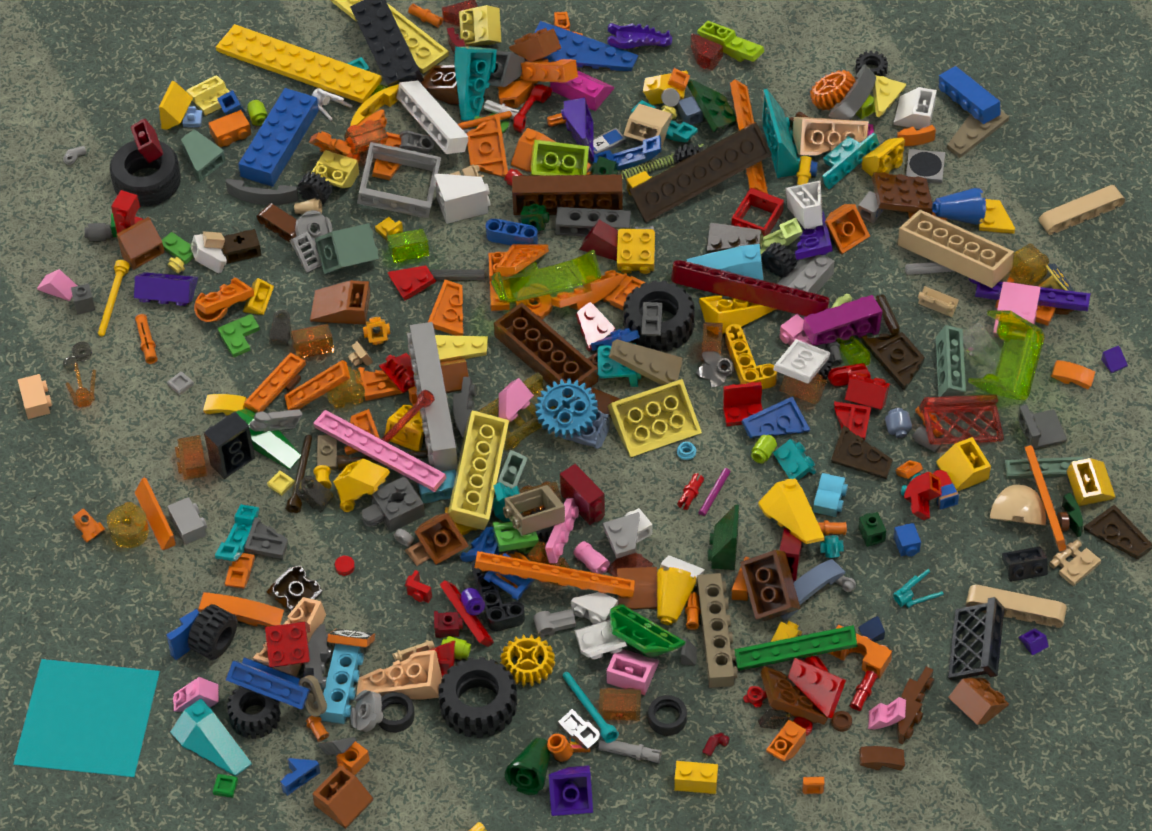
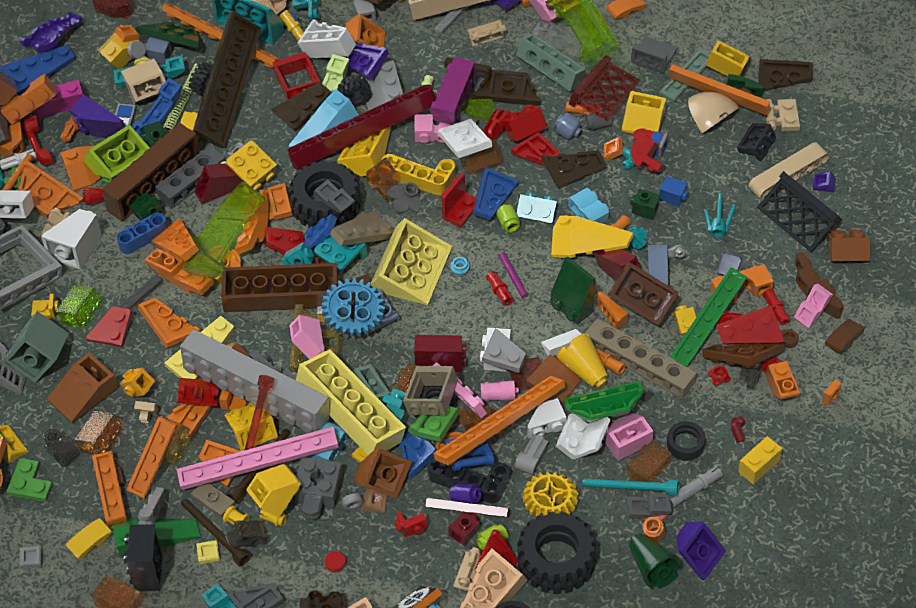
camera: 50 degrees left, 0 degrees up
(584, 342) = (299, 252): none -> teal brick

